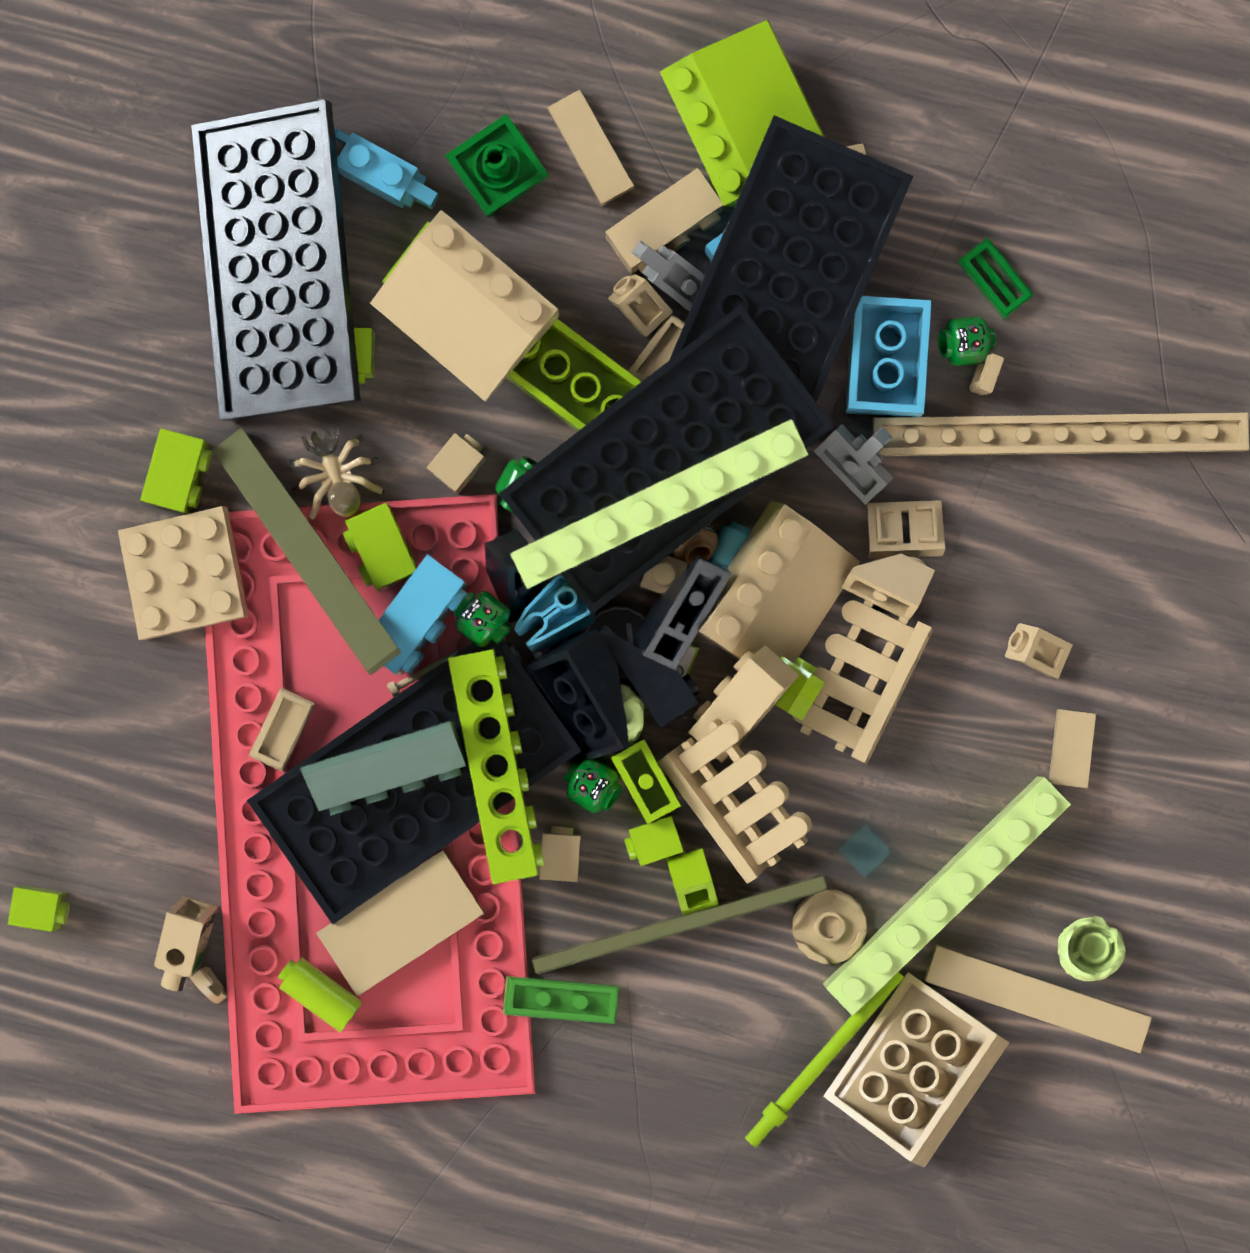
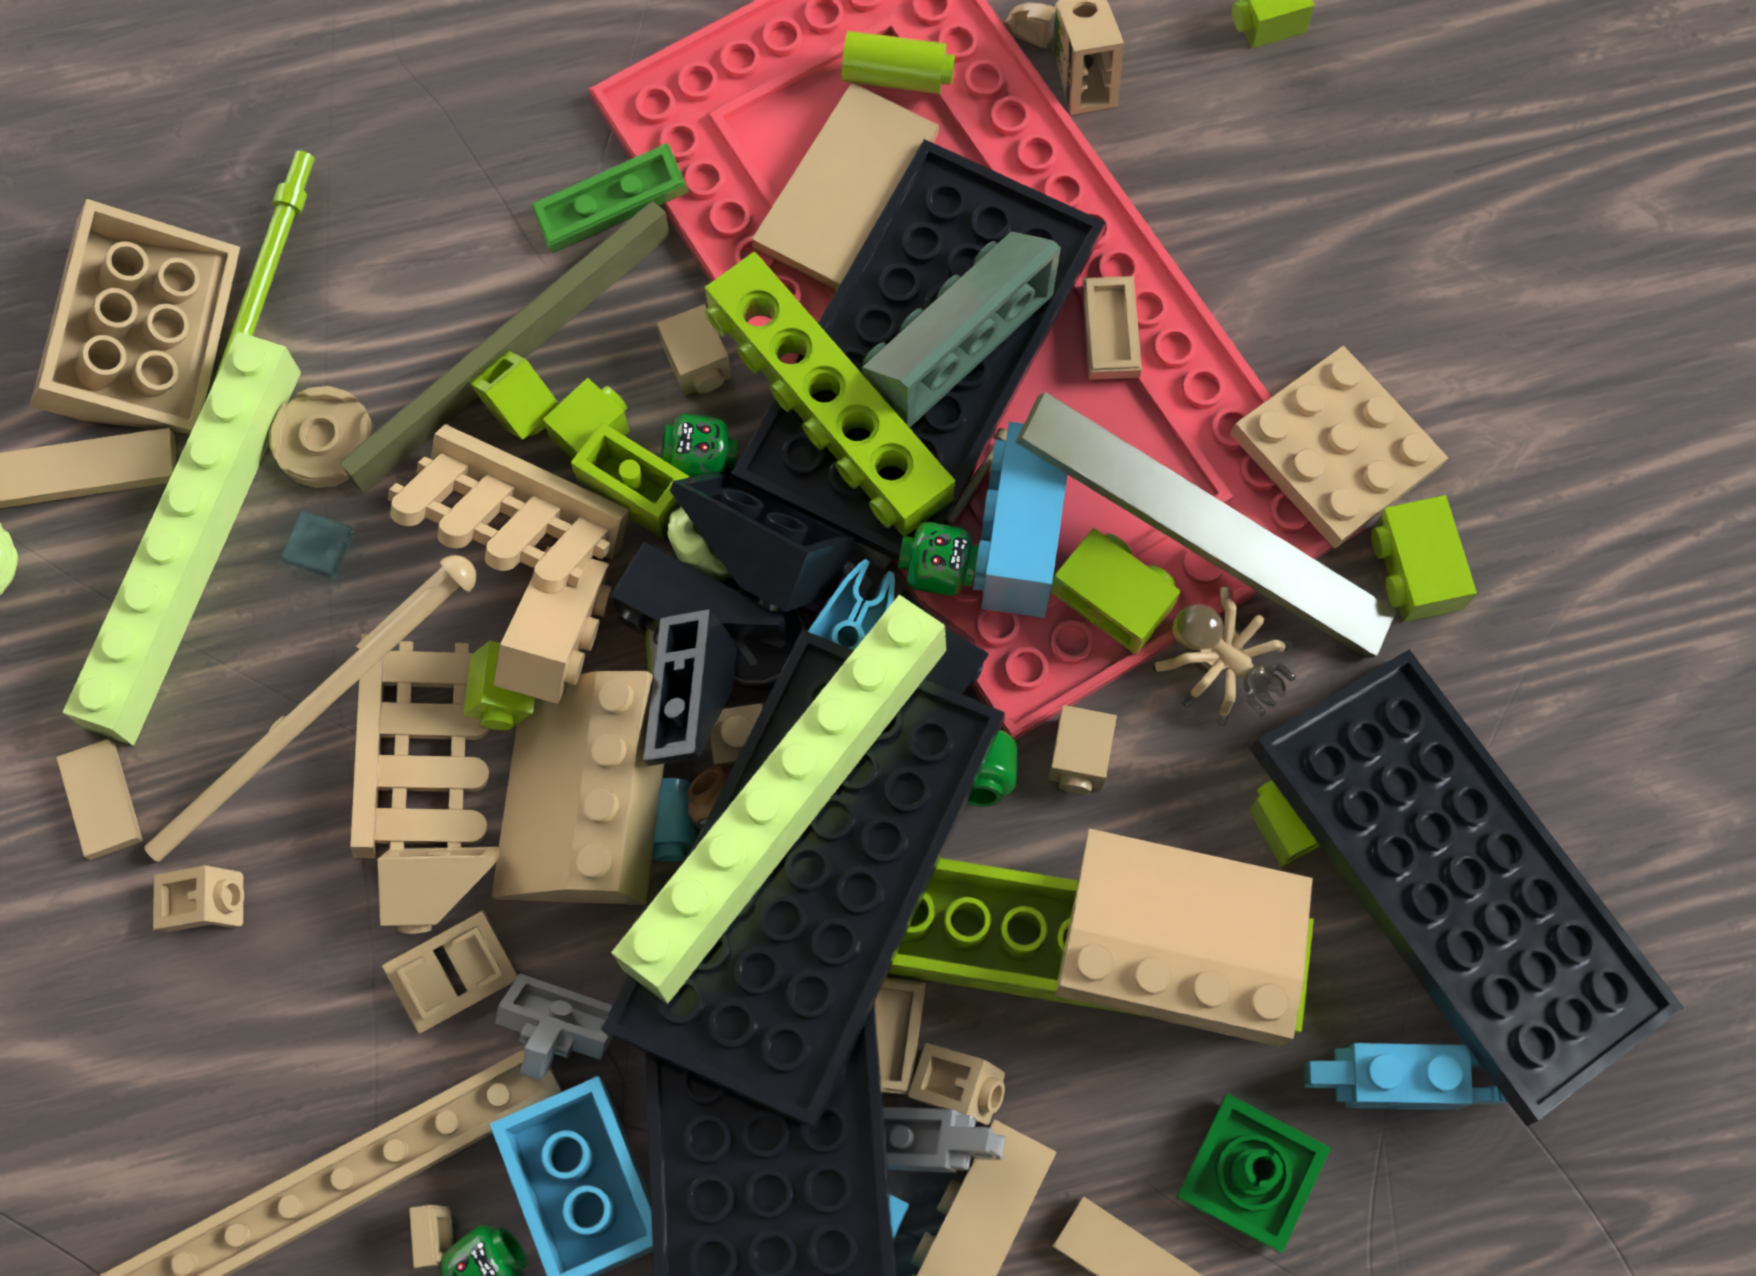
camera: 150 degrees right, 15 degrees down
(860, 746) = (455, 572): none -> tan bar

